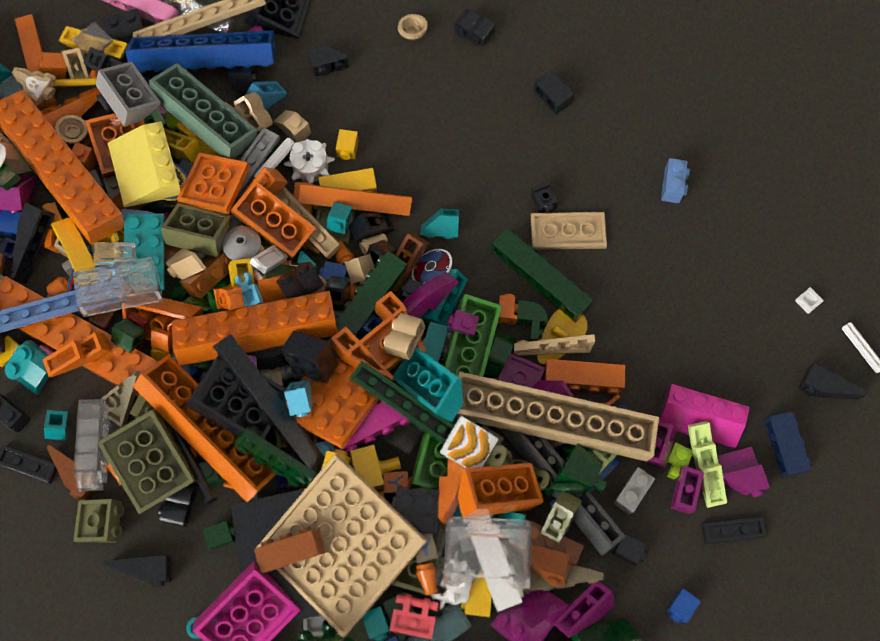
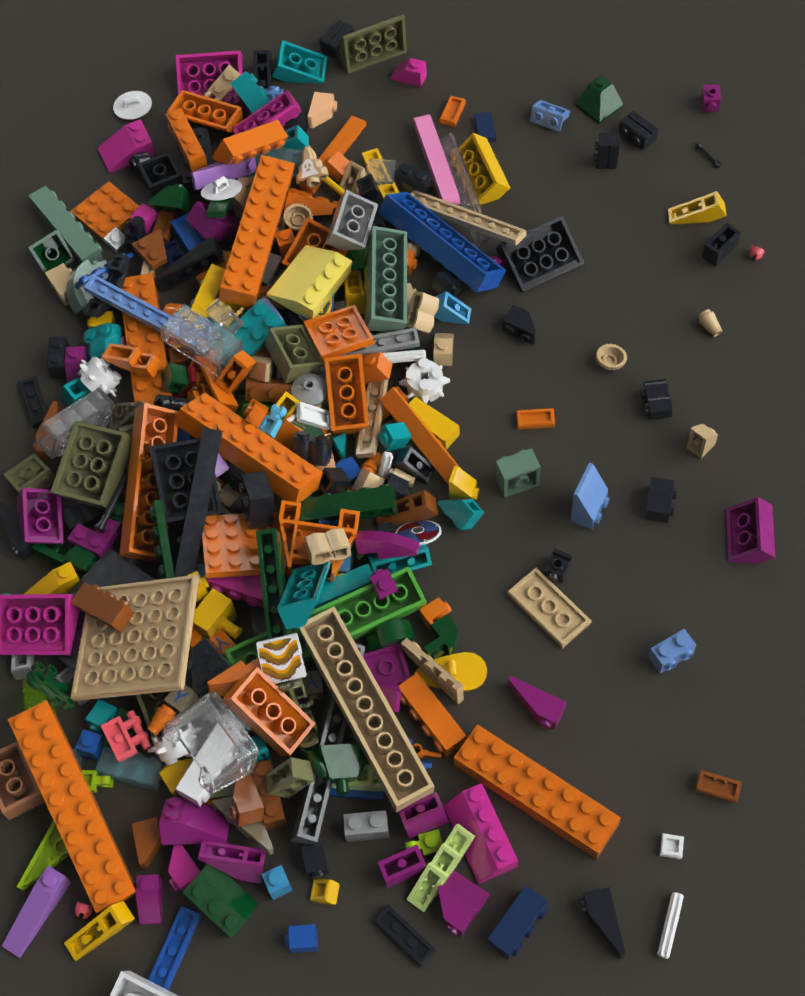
camera: 55 degrees right, 10 degrees down
(29, 404) = (73, 360): none -> magenta slope
(62, 393) = (98, 374): none -> white brick
(149, 540) = (40, 516): none -> magenta slope
(152, 354) = (170, 402): none -> black axle
(173, 284) = (235, 372): none -> orange brick
(188, 553) = (52, 553): none -> dark green hinge
(211, 513) = (97, 542): none -> magenta brick
(220, 574) = (57, 581): none -> yellow slope
(299, 398) = (219, 518): medium azure slope -> none
(347, 144) = (464, 395): yellow brick -> none
(355, 243) = (385, 462): none -> white piece
(411, 115) = (535, 418): none -> orange tile
(423, 207) = (462, 485): none -> yellow slope
(449, 161) = (518, 472): none -> sand green brick
(515, 134) = (589, 498): none -> medium blue slope
(534, 28) = (701, 439): none -> tan slope
(542, 275) = (487, 616): dark green brick -> none
(625, 591) = (277, 882): none -> dark azure brick
(629, 59) = (750, 532): none -> magenta slope
(639, 297) = (540, 704): none -> magenta slope
(656, 562) = (324, 891): none -> yellow slope
(702, 353) = (537, 791): none -> orange brick
(792, 236) = (718, 786): none -> dark orange plate

